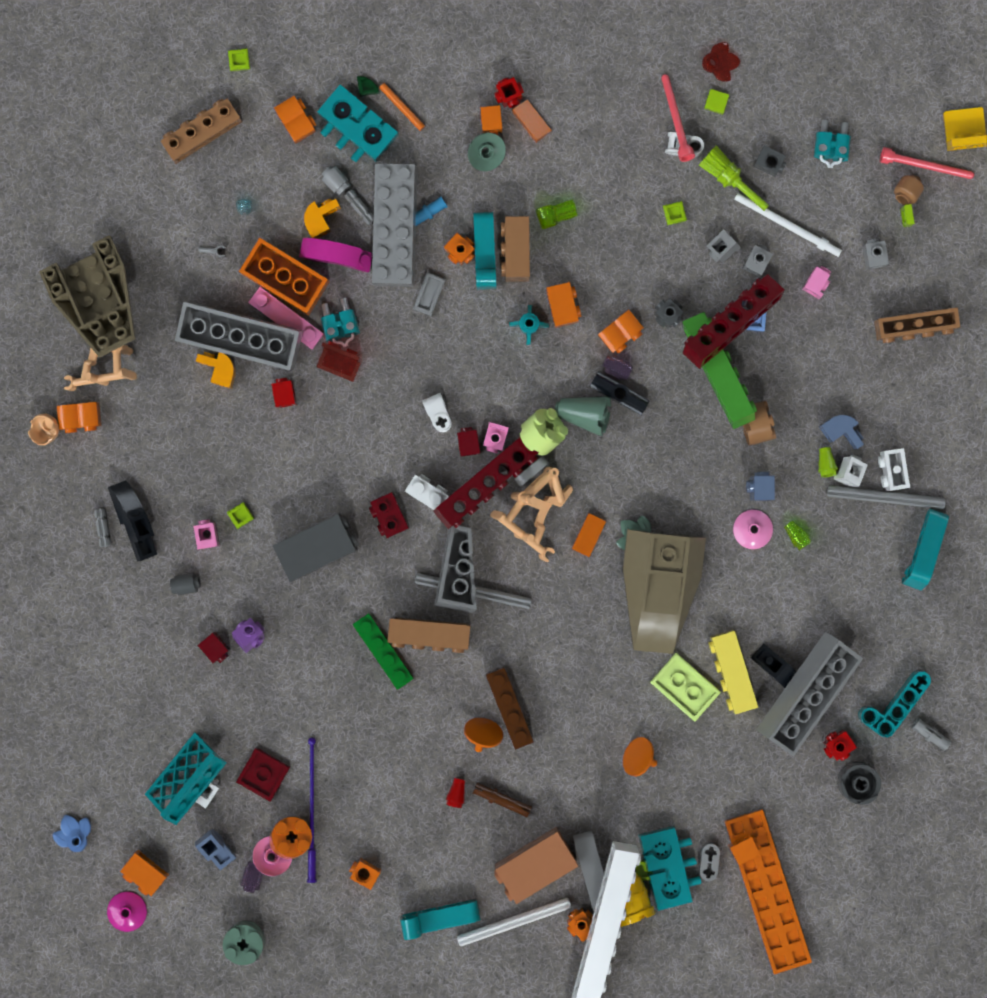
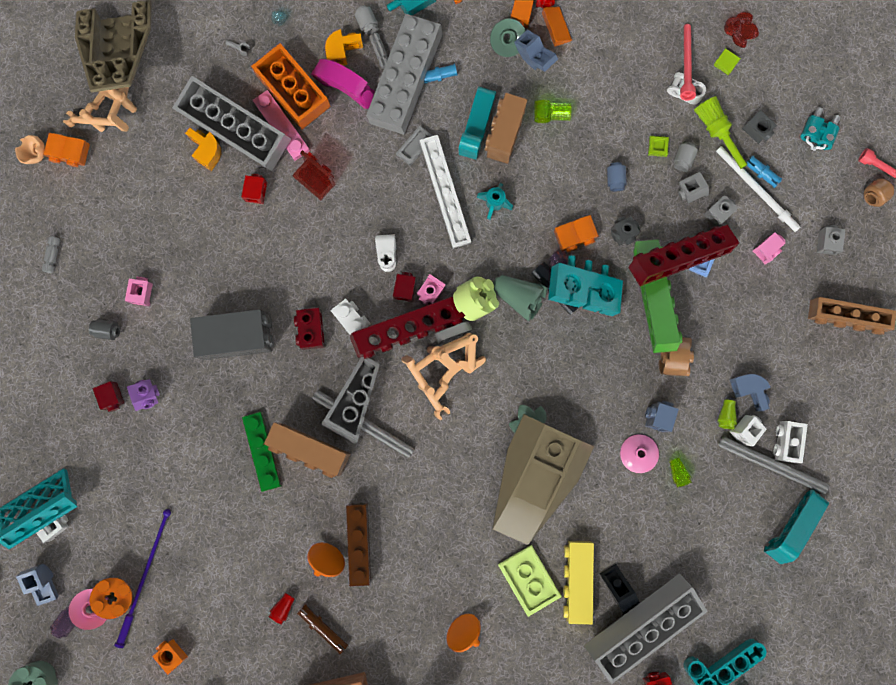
camera: 20 degrees right, 5 degrees down
(133, 516) = (79, 256): black slope -> none
(240, 515) = (177, 285): lime tile -> none
(263, 774) = (111, 528): dark red tile -> none
(340, 324) = (326, 146): teal piece -> none
(456, 243) = (455, 113): orange brick -> none
(476, 332) = (445, 191): none -> white plate
(519, 159) = (533, 51): none -> sand blue brick
(562, 304) = (531, 192): orange brick -> none
(588, 535) = (486, 408): orange slope -> none
(642, 260) = (616, 177): none -> sand blue brick
(648, 385) = (585, 288): none -> teal piece
(705, 216) = (685, 156): none -> light grey brick
(787, 205) = (763, 171): none -> dark azure pin
(907, 215) = (870, 215): lime tile -> none

